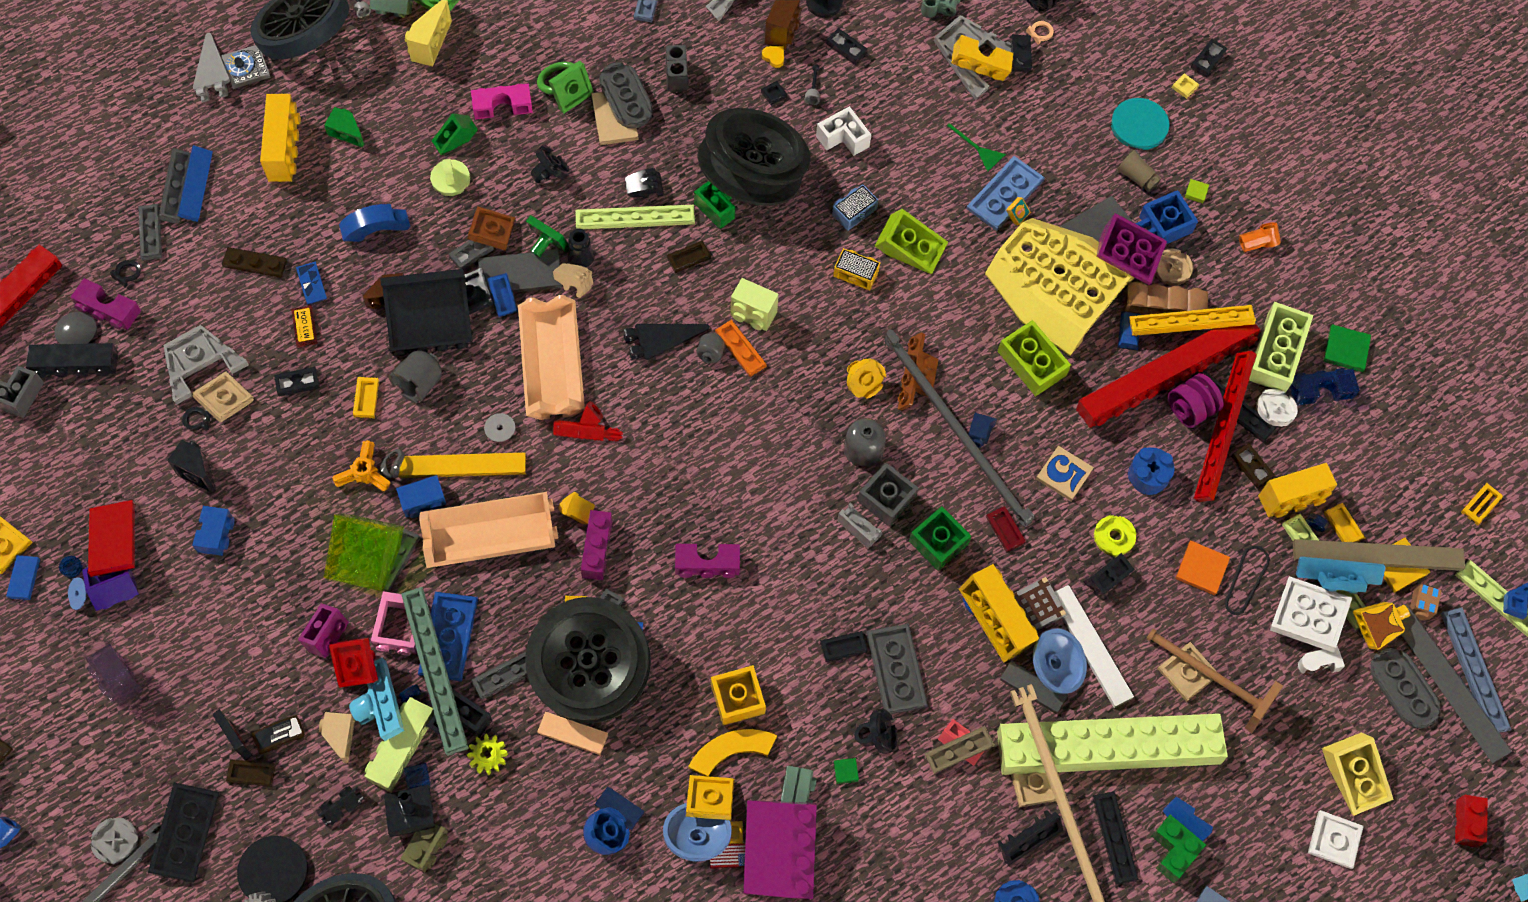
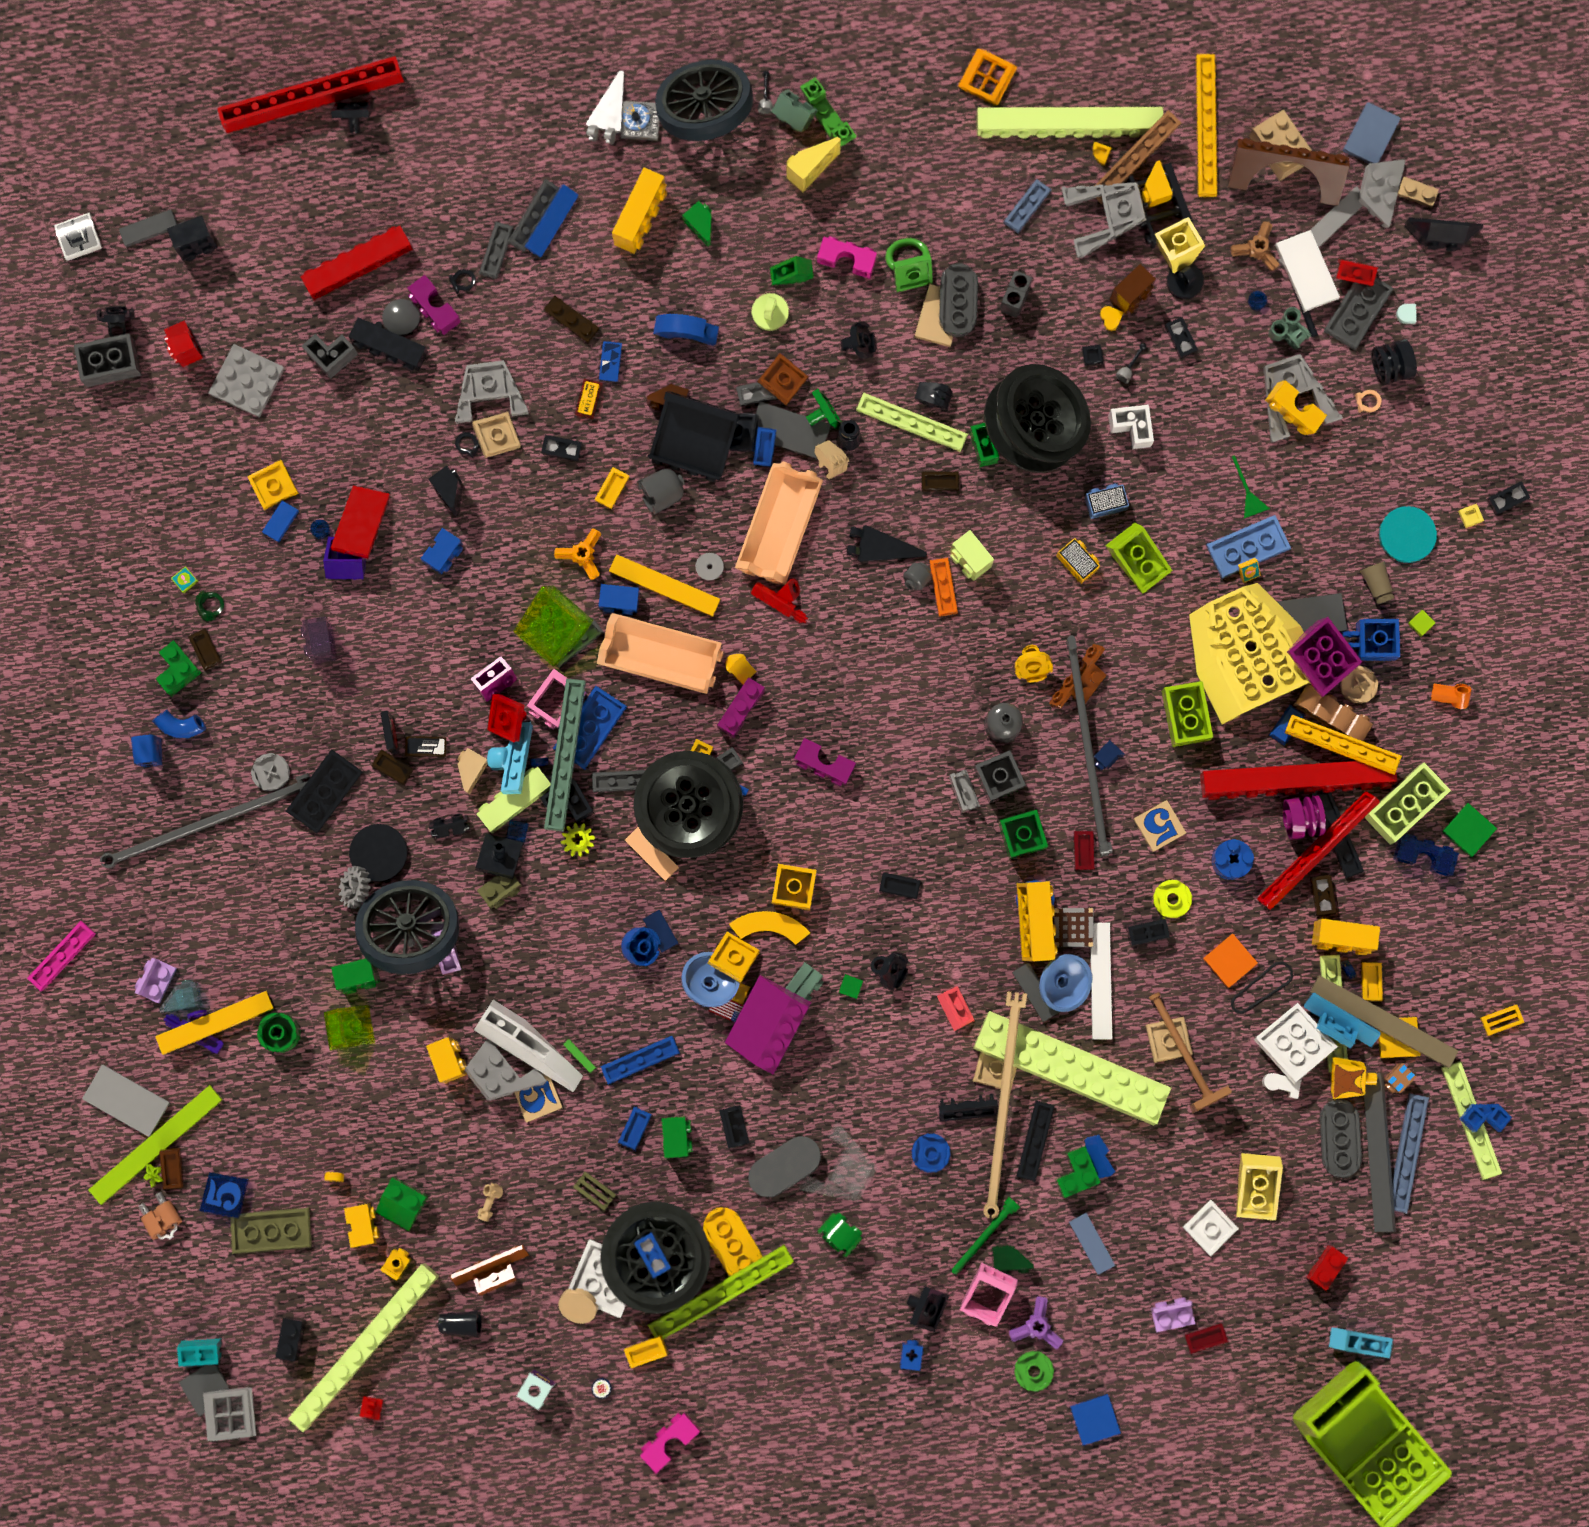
camera: 30 degrees right, 15 degrees up
(77, 593) = (316, 555): medium blue piece -> none
(395, 469) = (608, 565): dark grey piece -> none
(897, 669) = (933, 924): dark grey tile -> none
(959, 749) = (948, 1014): dark tan tile -> none
(1021, 53) = (1335, 417): black piece -> none
(1276, 407) = (1374, 854): white tile -> none

